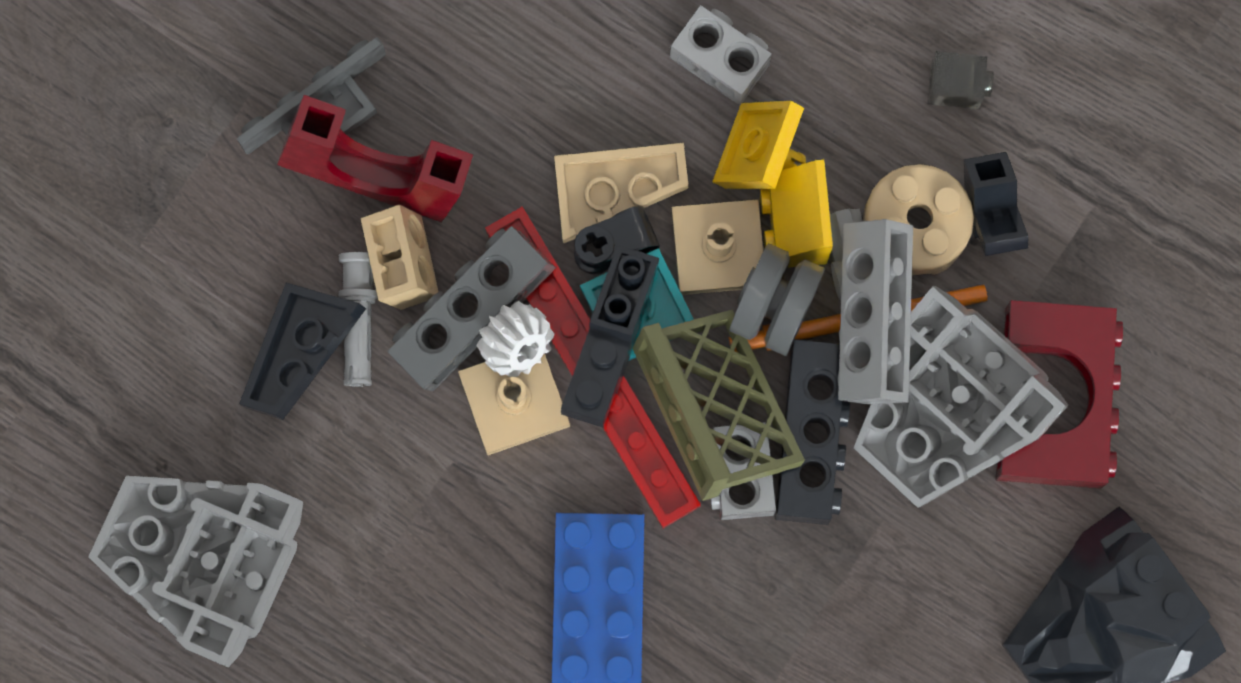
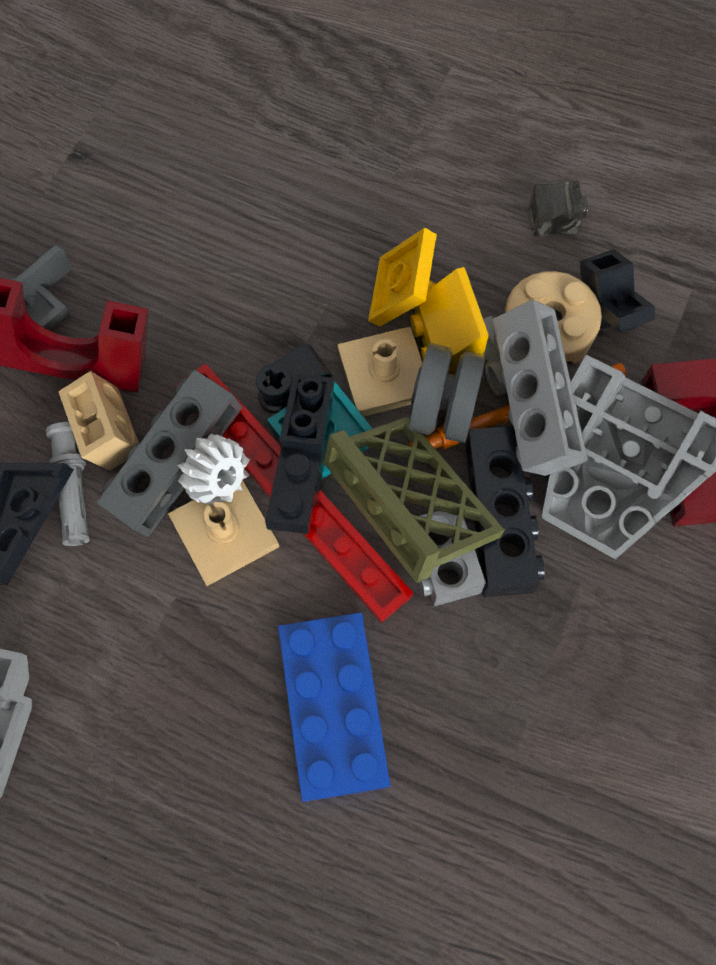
camera: 10 degrees left, 10 degrees down
(610, 181) = (278, 330): tan wing -> none
(713, 62) = (353, 225): light grey brick -> none

